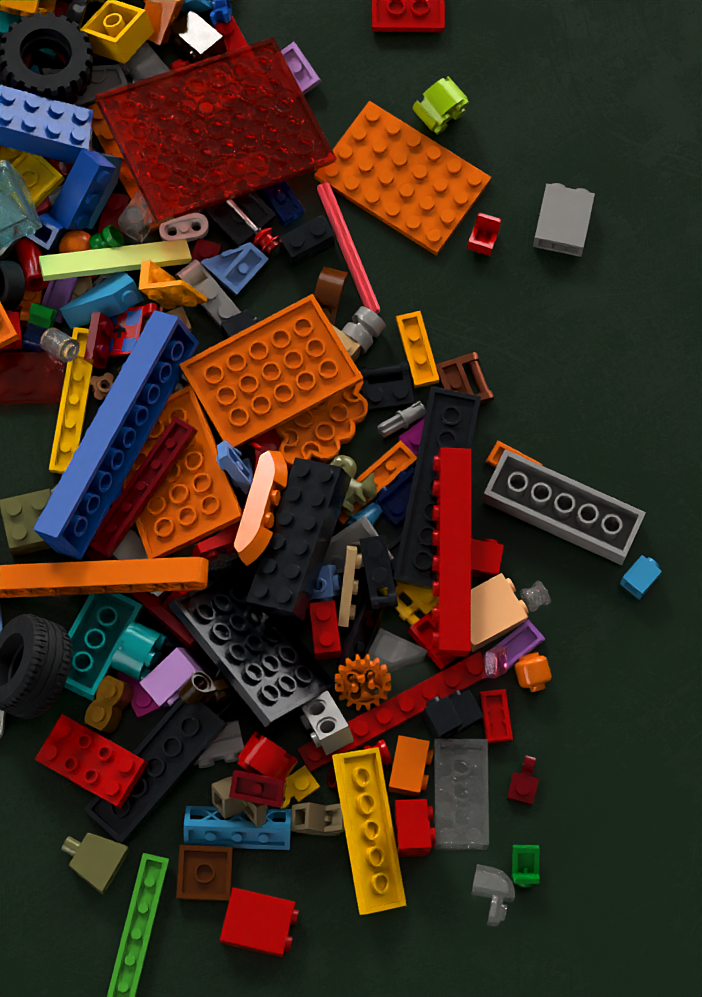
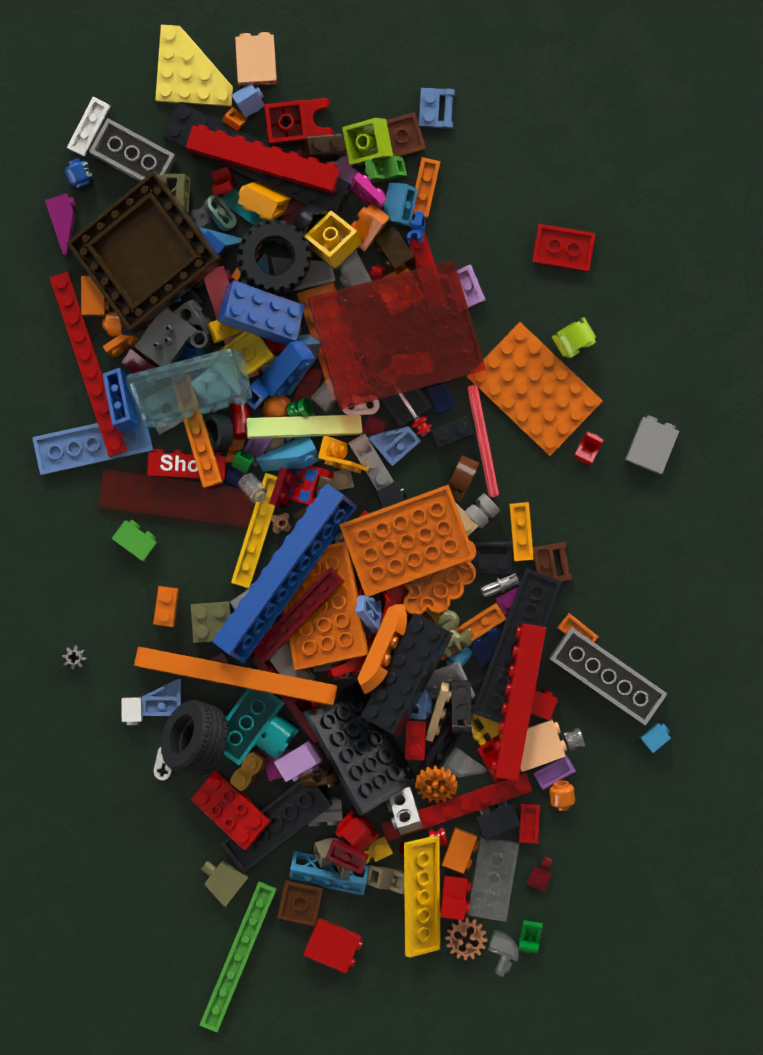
camera: 15 degrees right, 15 degrees up
(431, 870) = (455, 942): none -> nougat gear
(495, 662) = (535, 785): clear pink plate -> none

